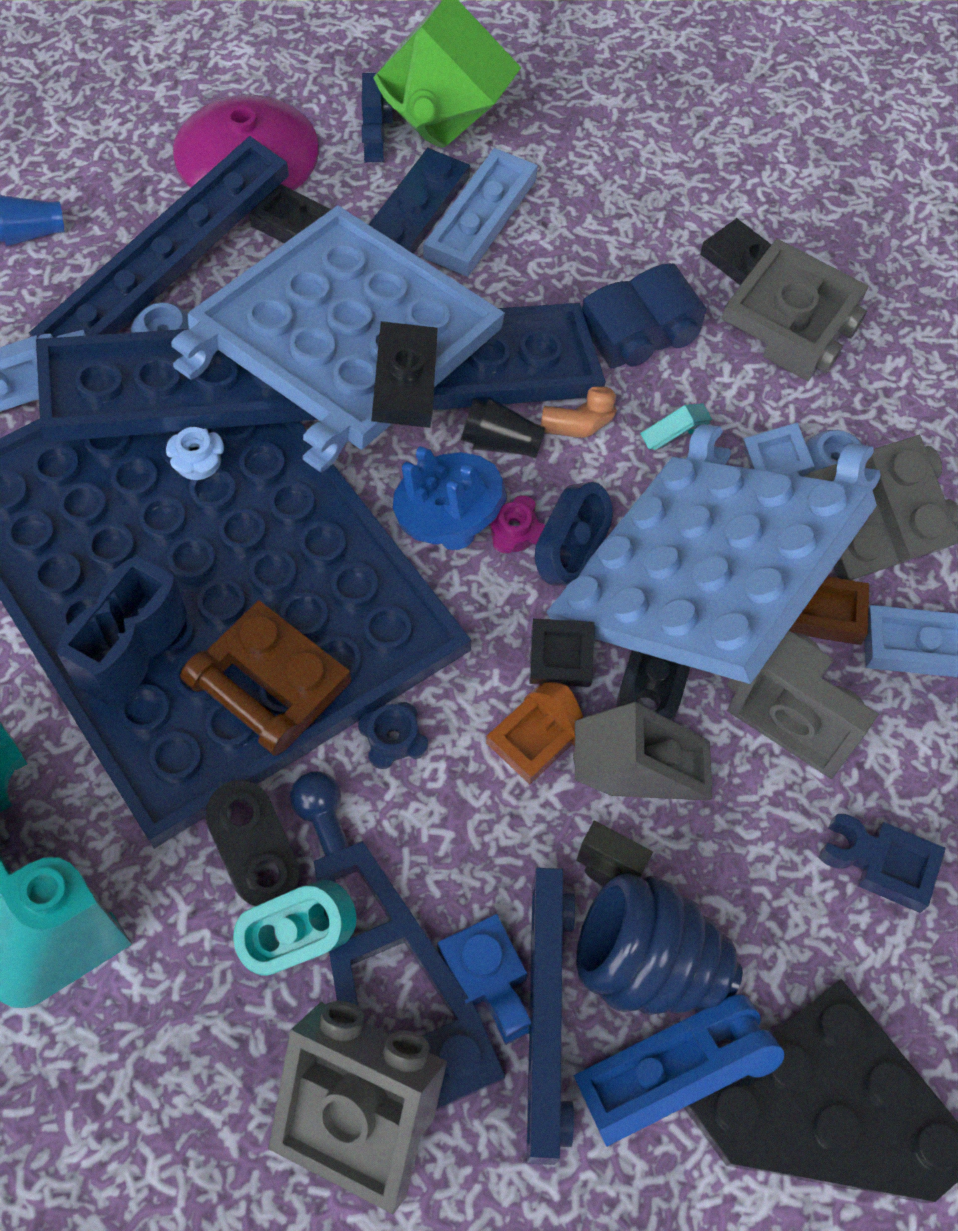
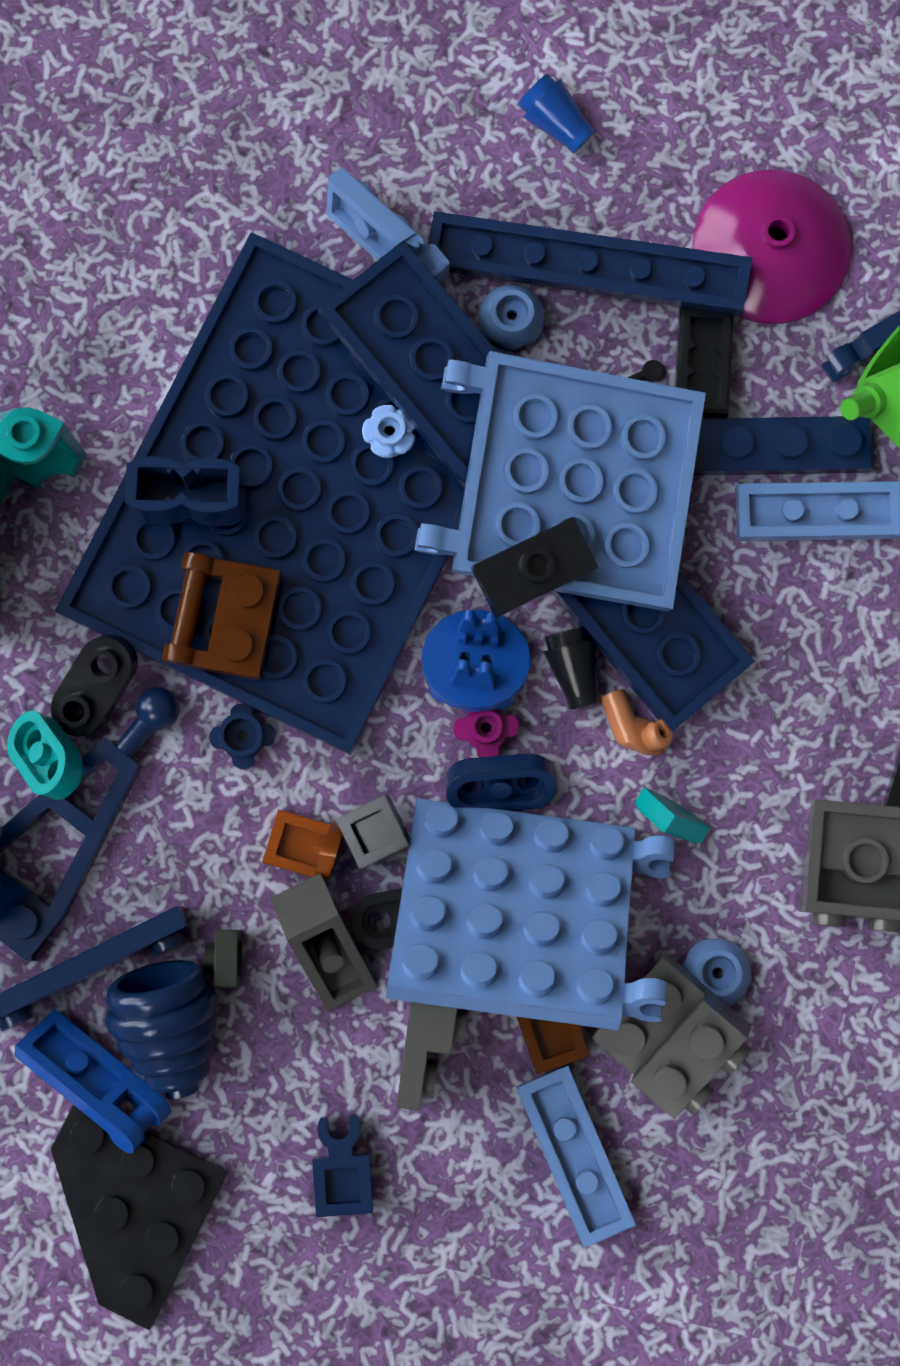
camera: 65 degrees right, 20 degrees up
(487, 971) = (98, 905): blue plate -> none
(643, 315) = (775, 727): dark blue brick -> none
(779, 451) = (677, 926): medium blue plate -> none

